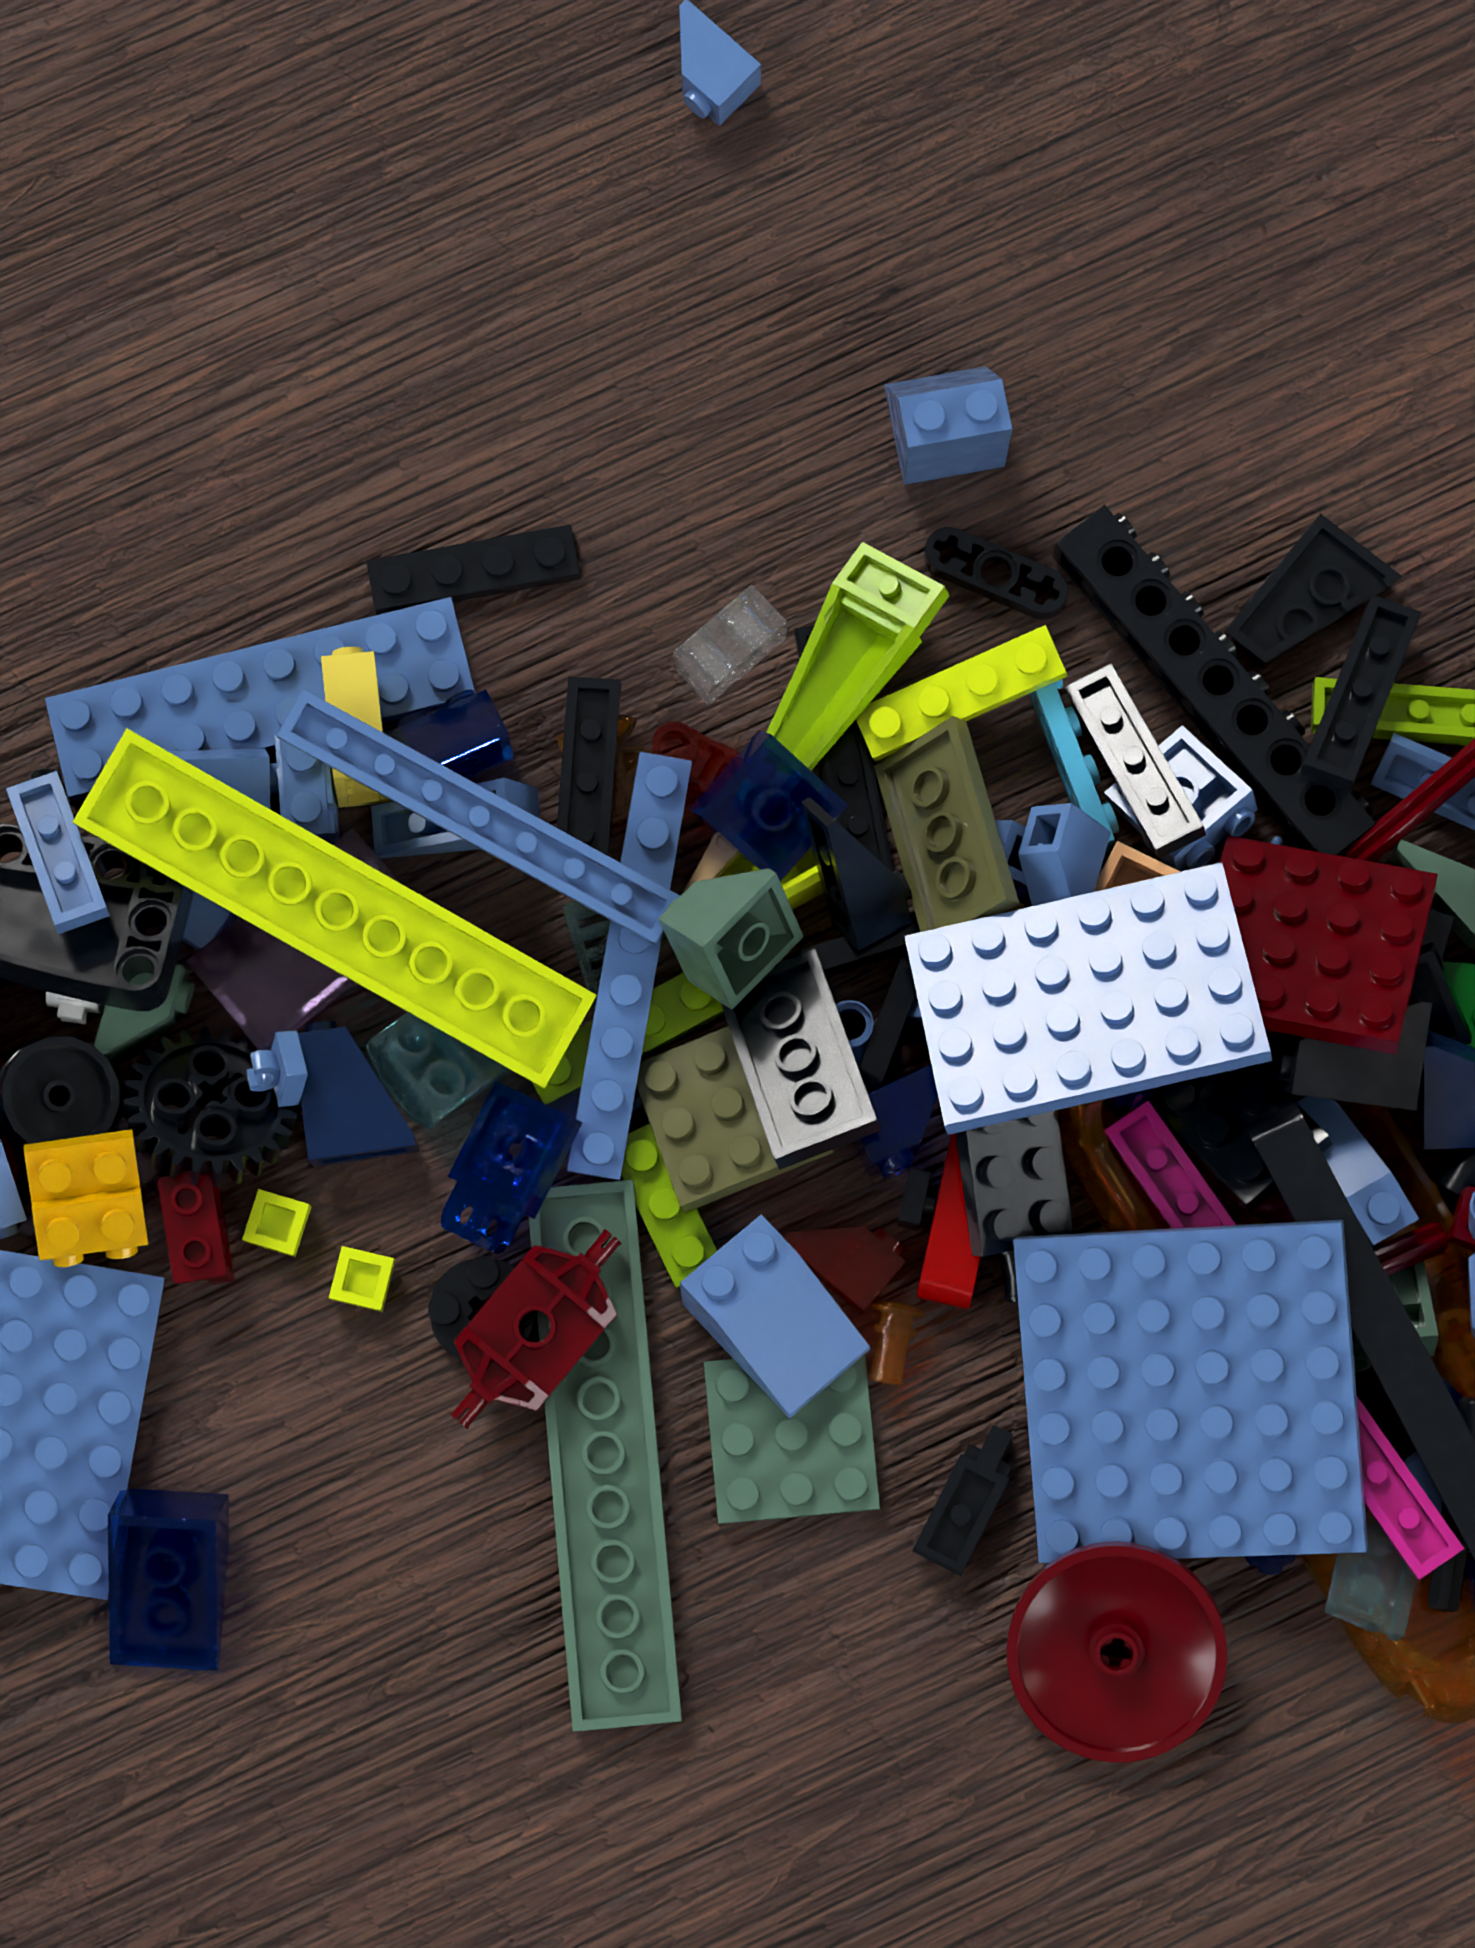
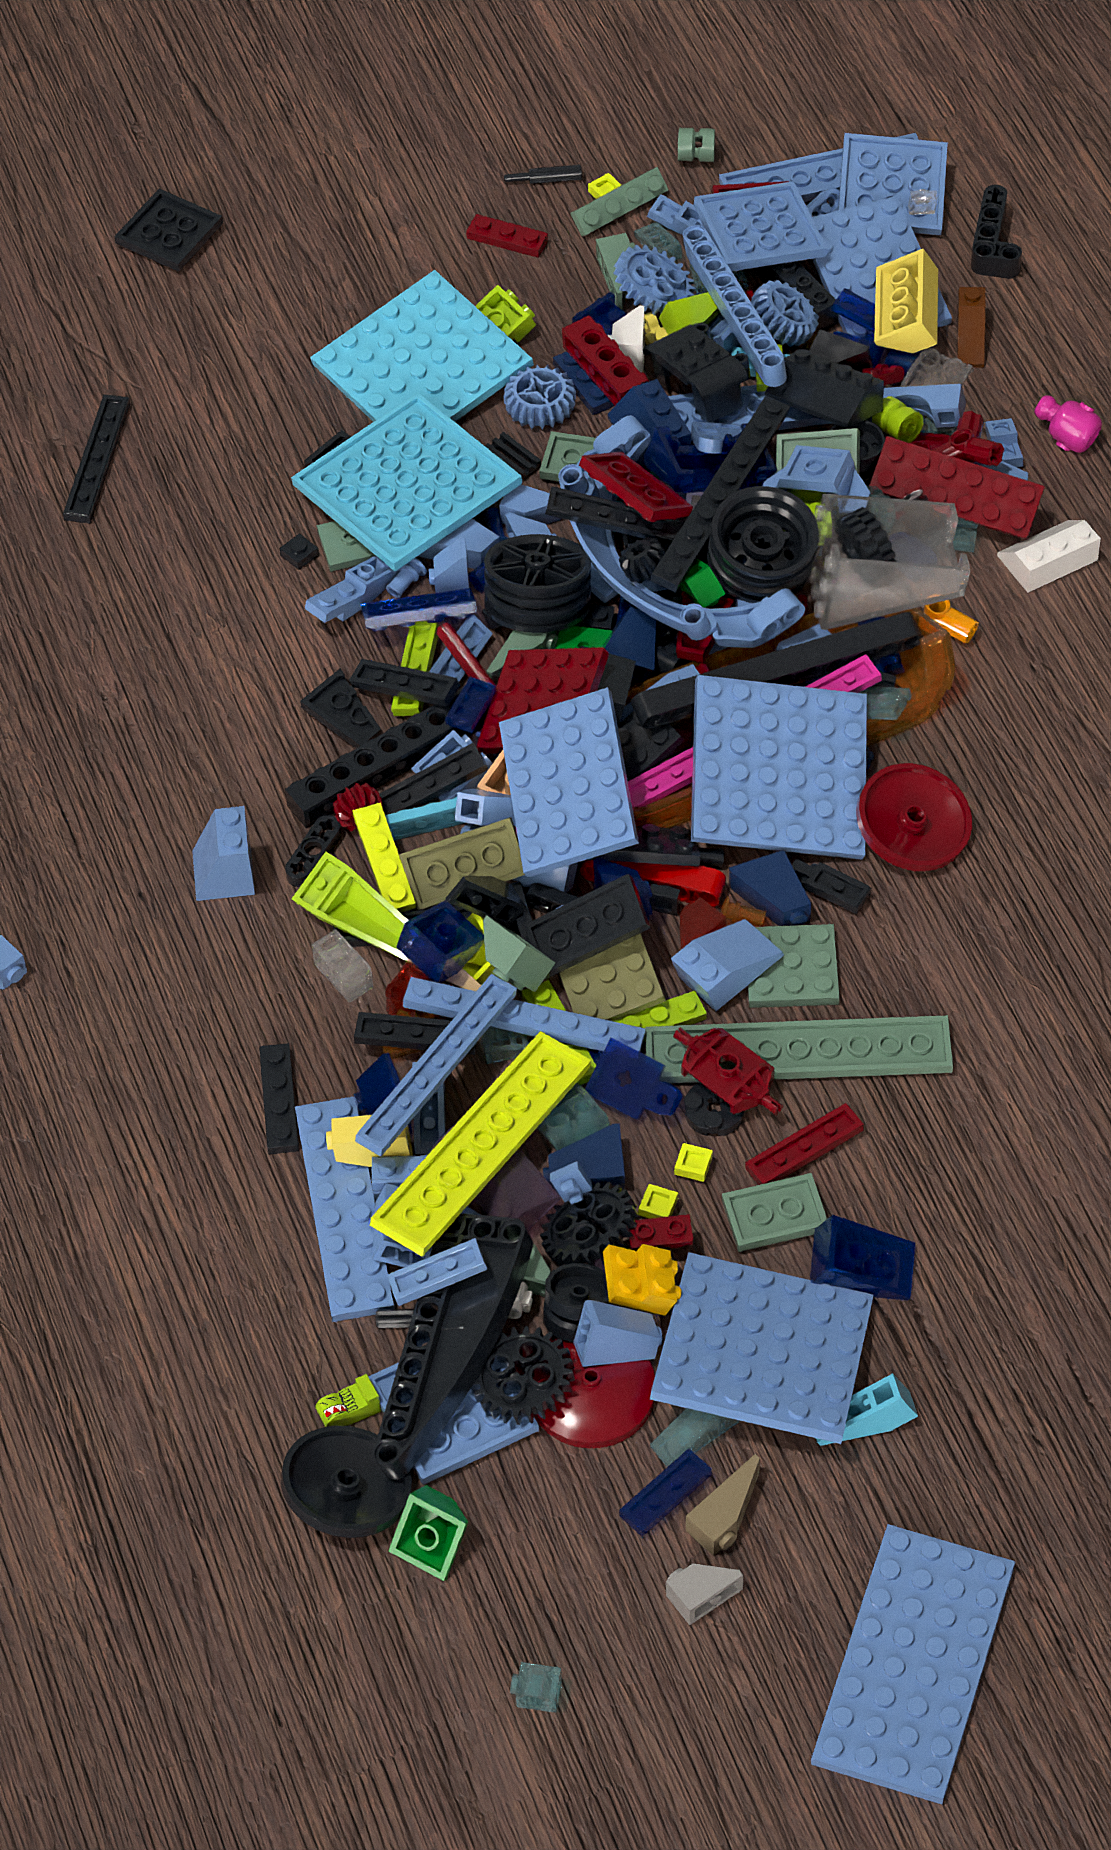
camera: 85 degrees left, 25 degrees down
(265, 1424) = (774, 1212): none -> sand green plate
(402, 1471) = (805, 1145): none -> dark red plate
(947, 1397) = (772, 886): none -> dark blue slope
(1080, 637) = (353, 799): none -> dark red gear
(1306, 815) = (470, 704): none -> clear blue plate

